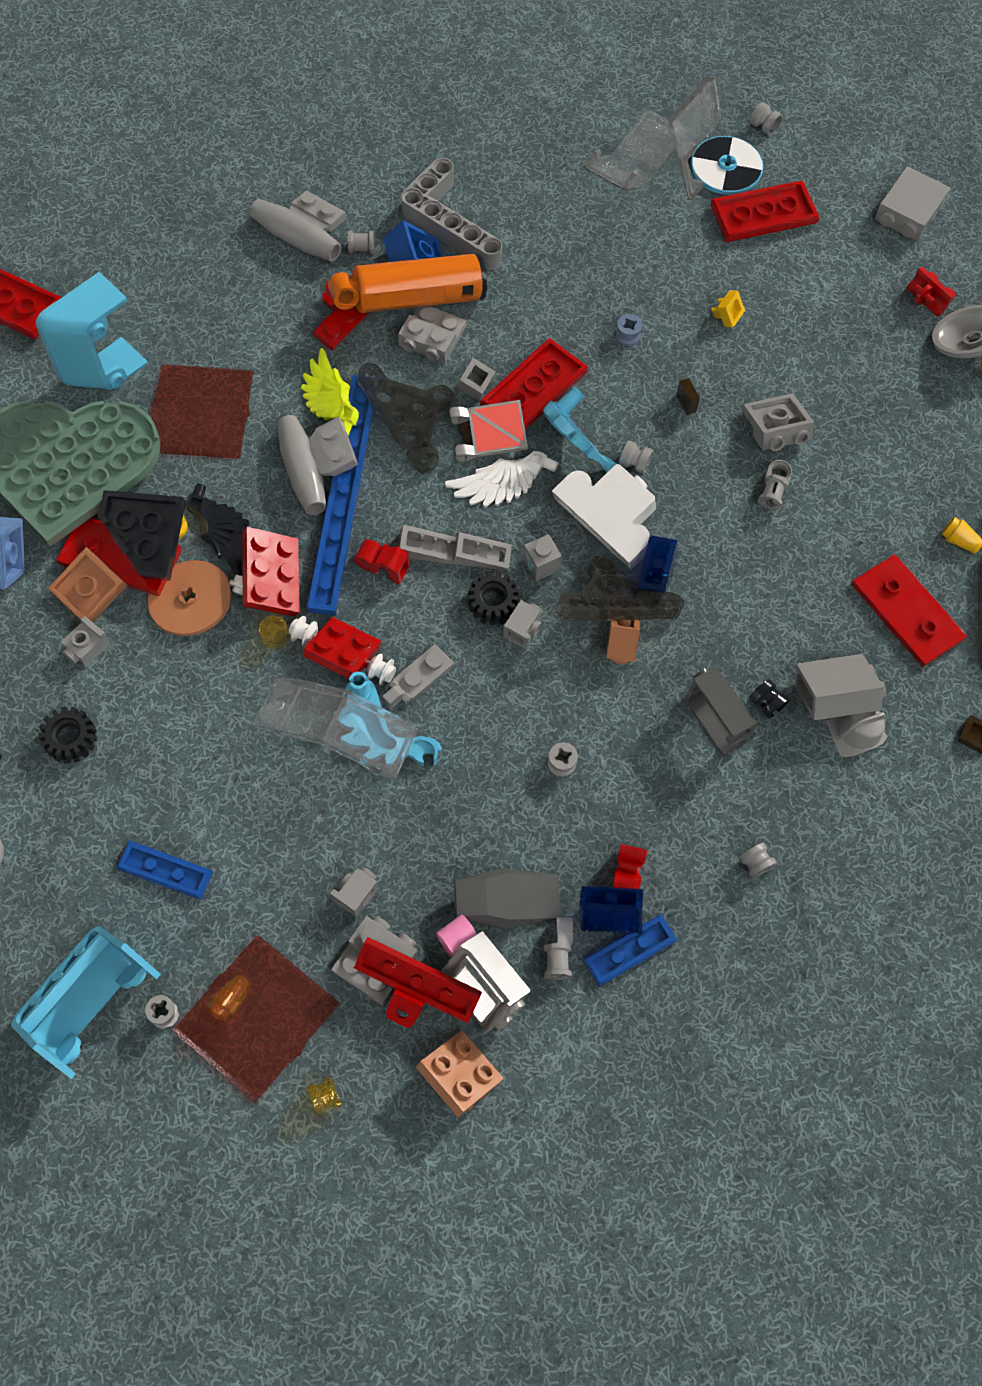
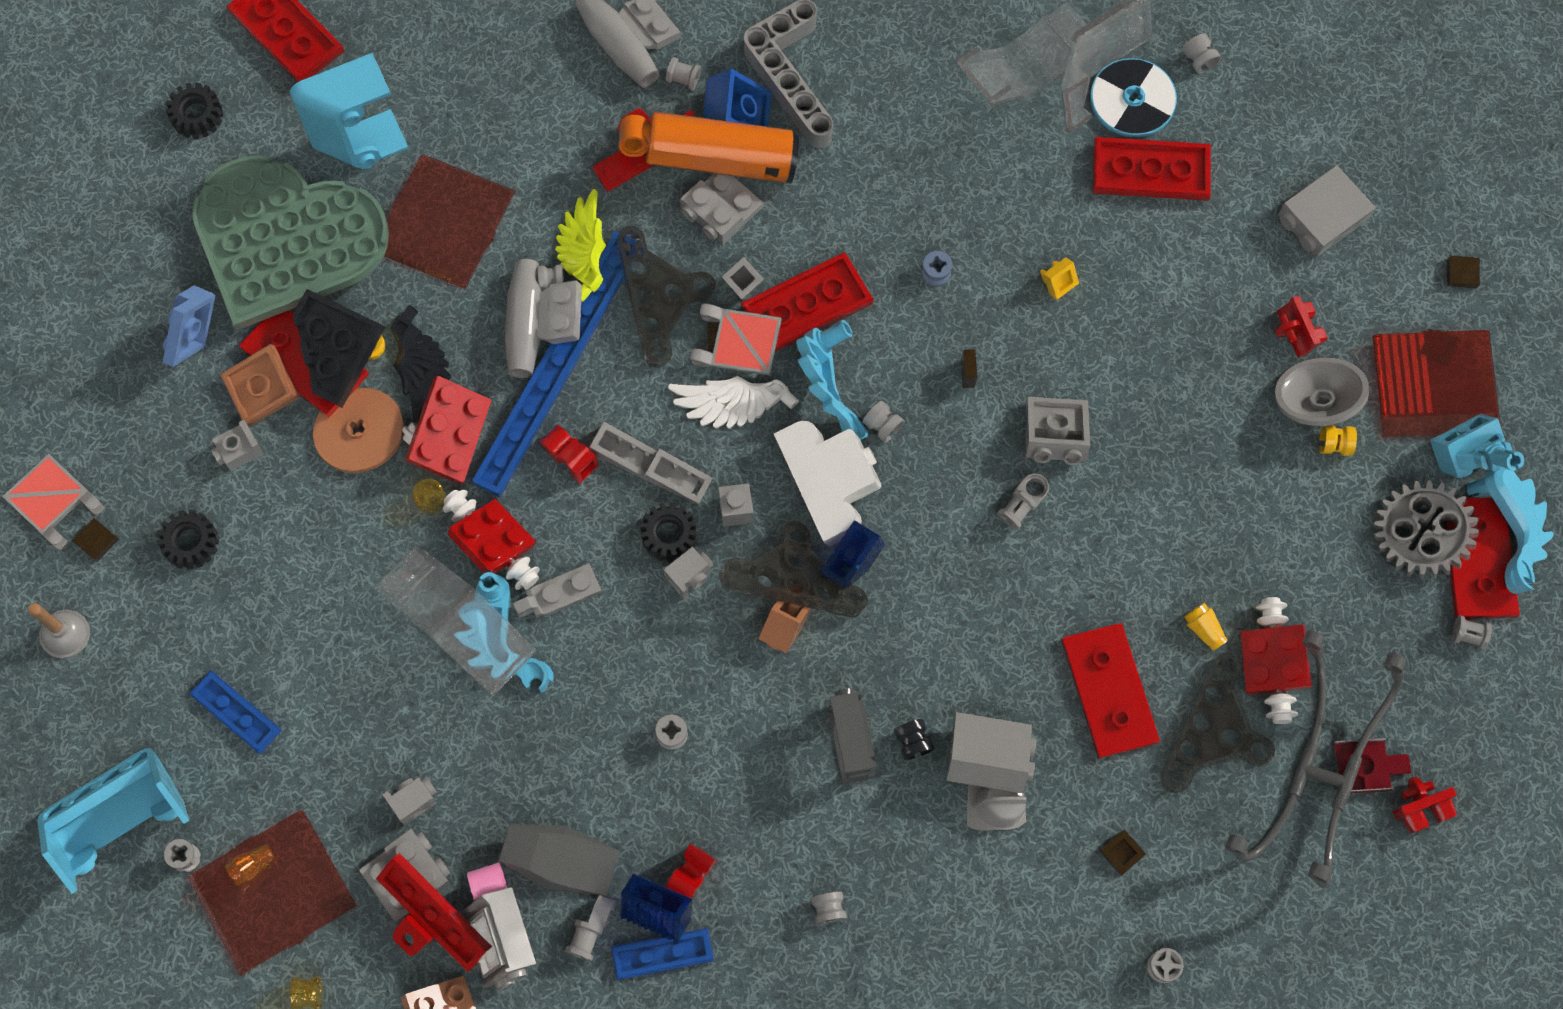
camera: 20 degrees right, 5 degrees up
(309, 425) = (550, 276): none -> light grey wheel

